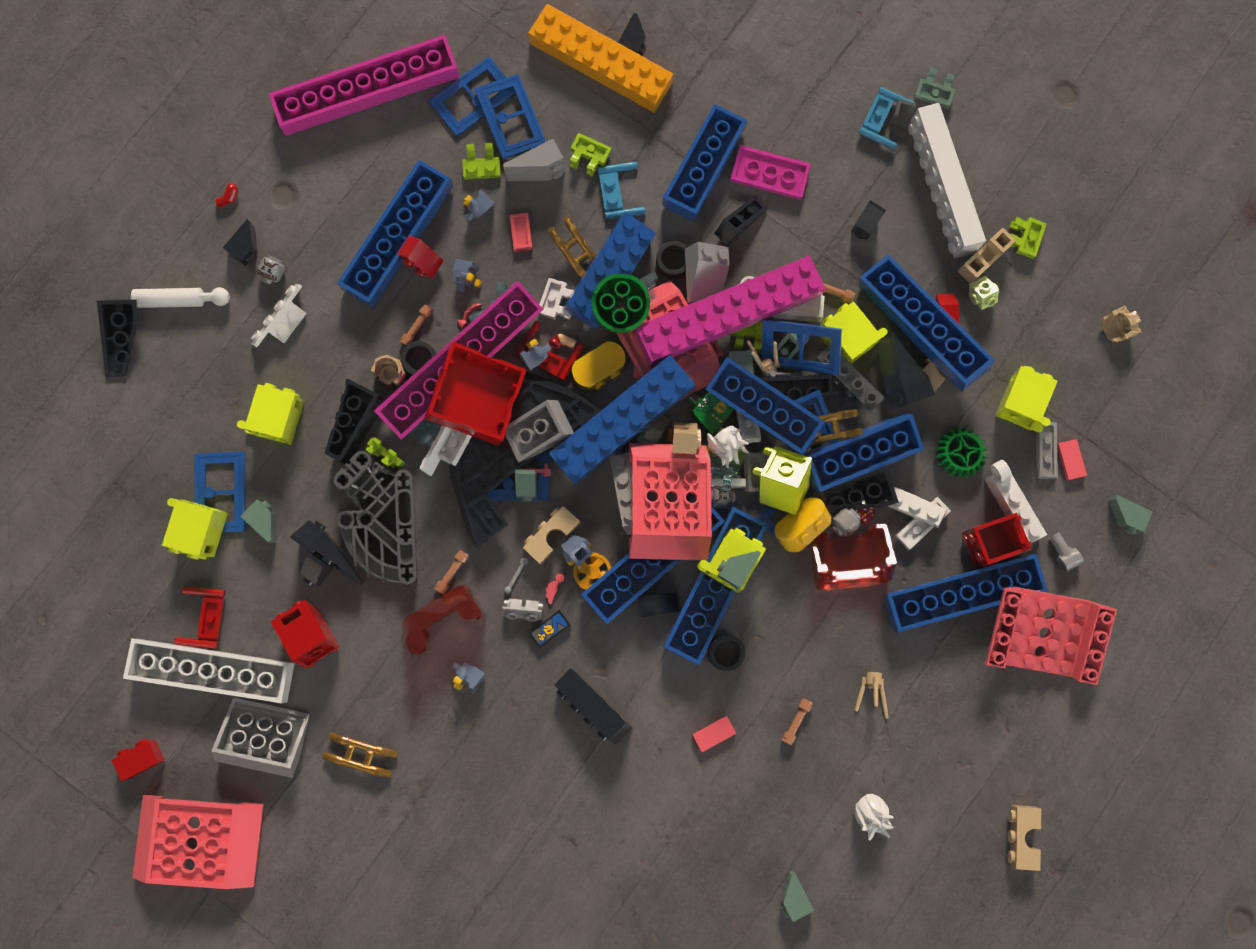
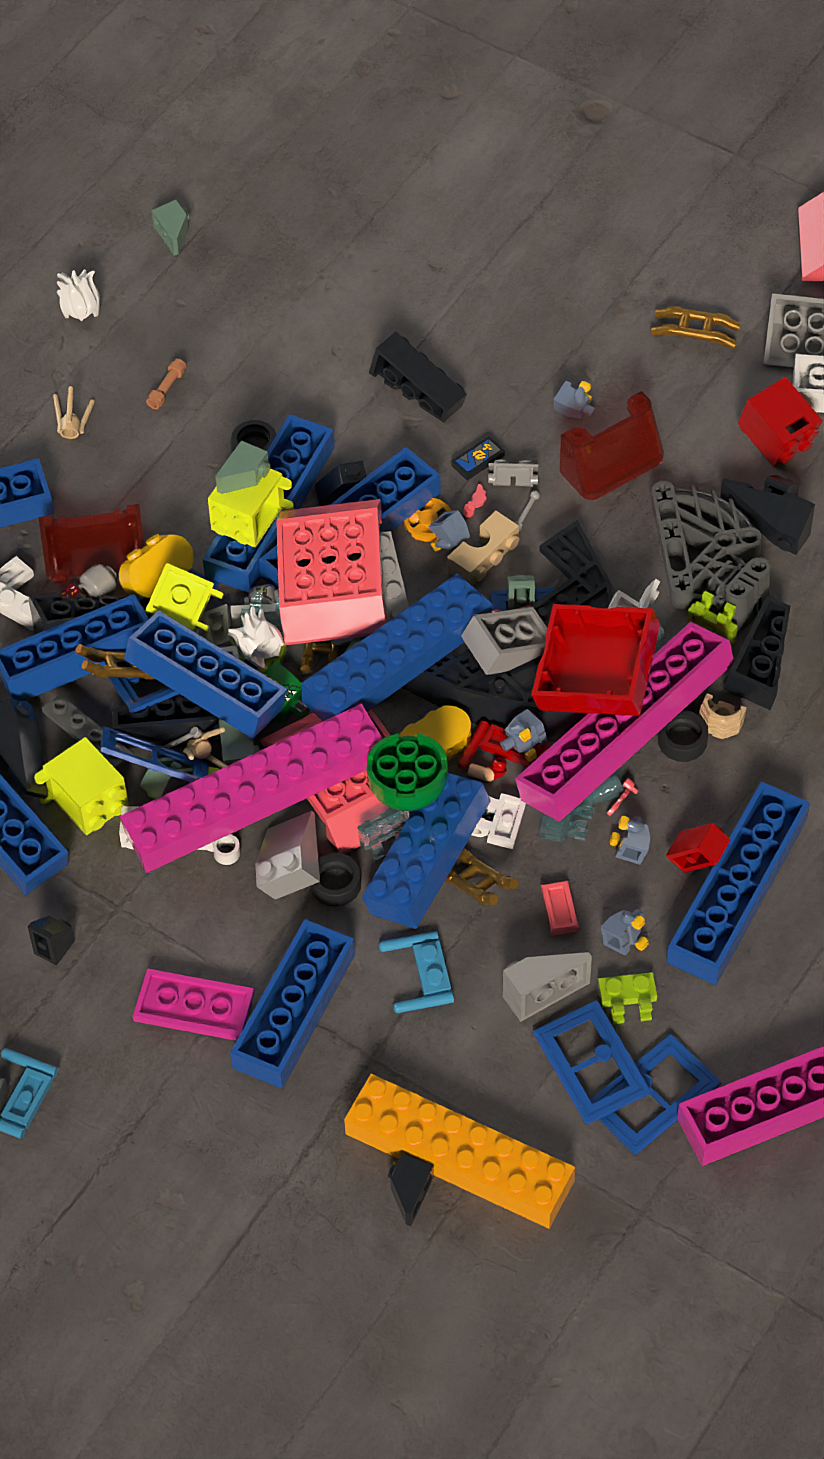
camera: 175 degrees left, 25 degrees down
(425, 312) = (702, 763): nougat bar -> none
(442, 586) = (599, 521): nougat bar -> none
(591, 150) = (465, 1020): lime plate -> none
(686, 438) = (311, 615): tan arch -> none
(714, 733) = (268, 368): coral tile -> none
(740, 220) = (237, 934): black slope -> none
(847, 295) = (127, 861): nougat bar -> none

